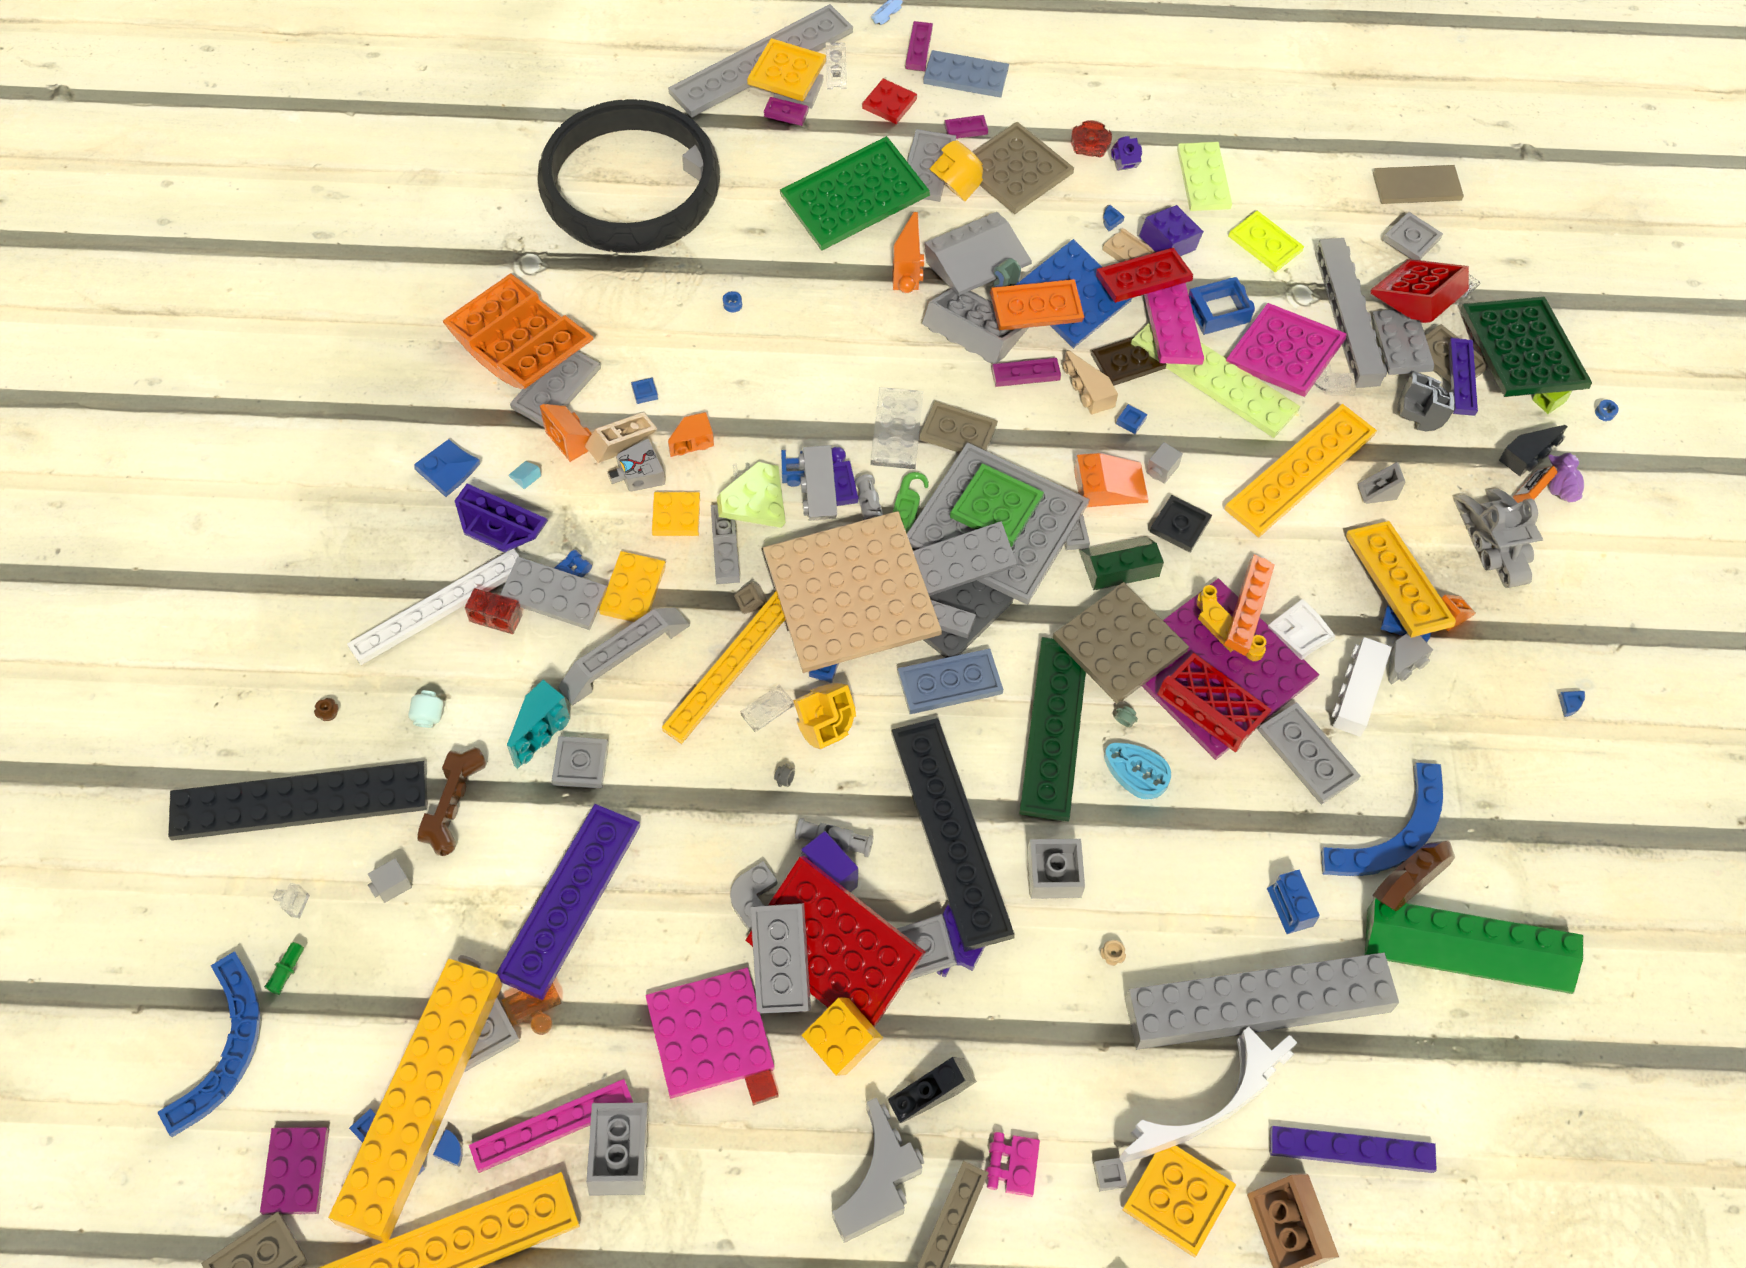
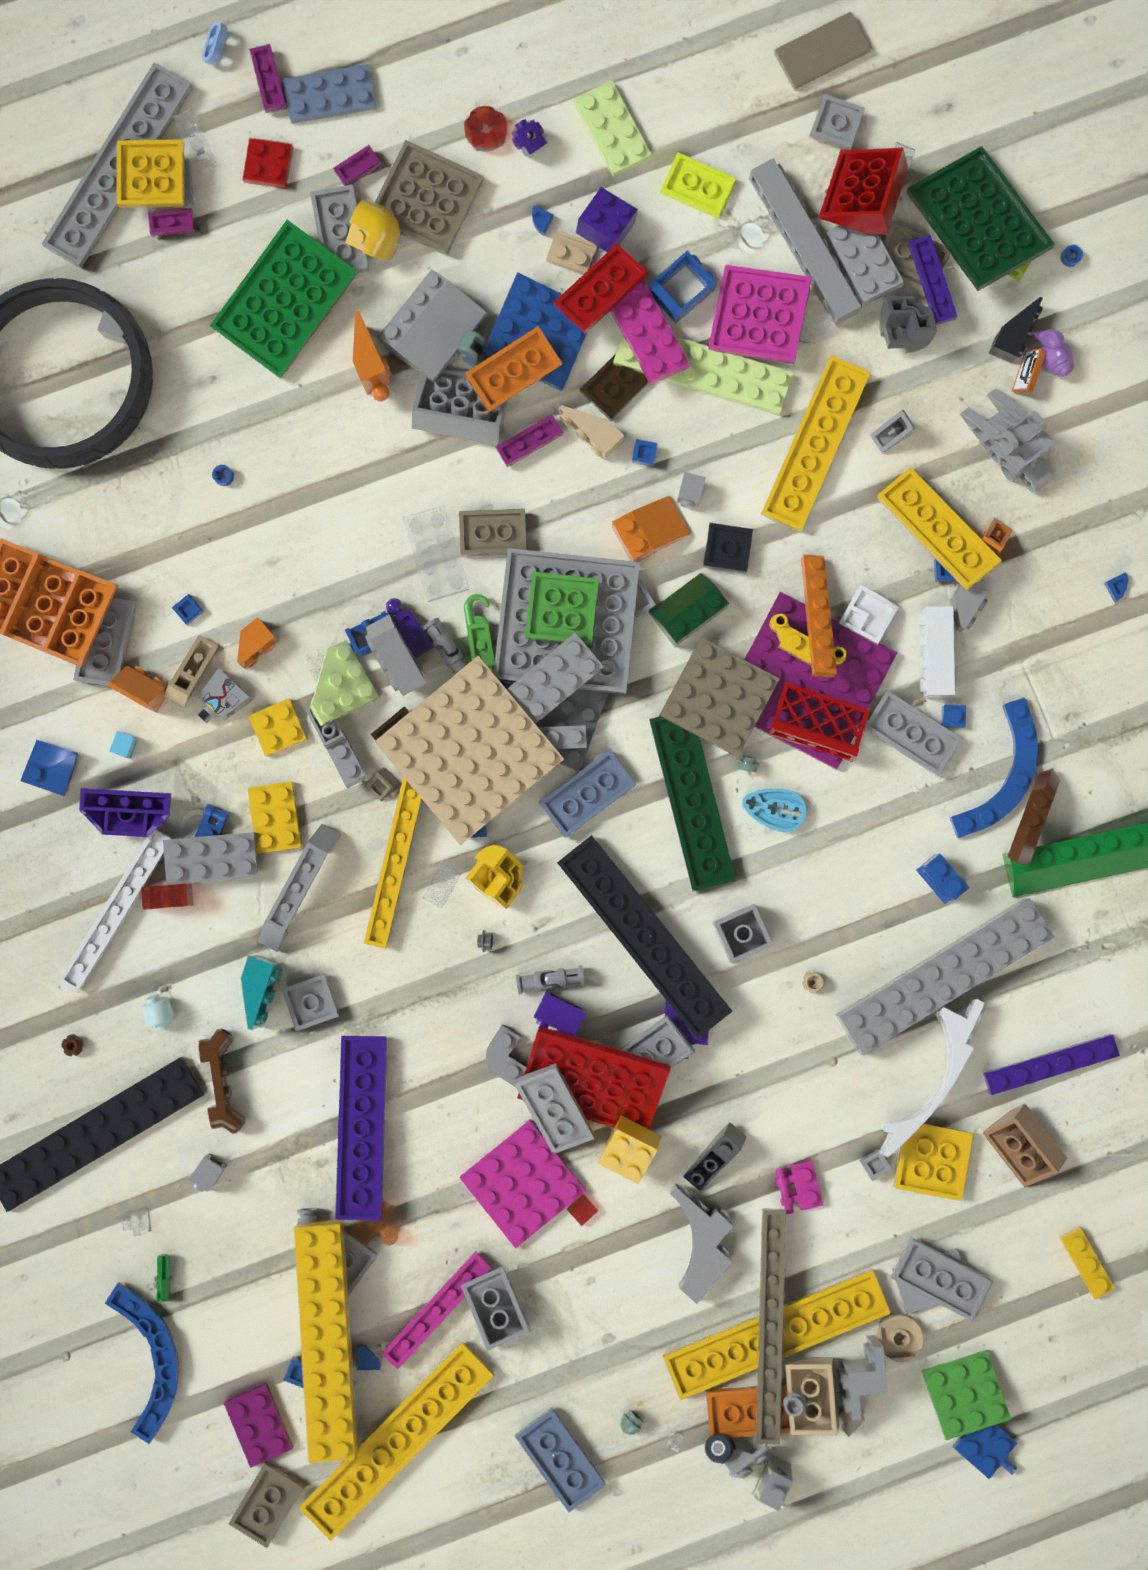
camera: 20 degrees left, 25 degrees up
(1359, 755) = (954, 716): none -> blue plate

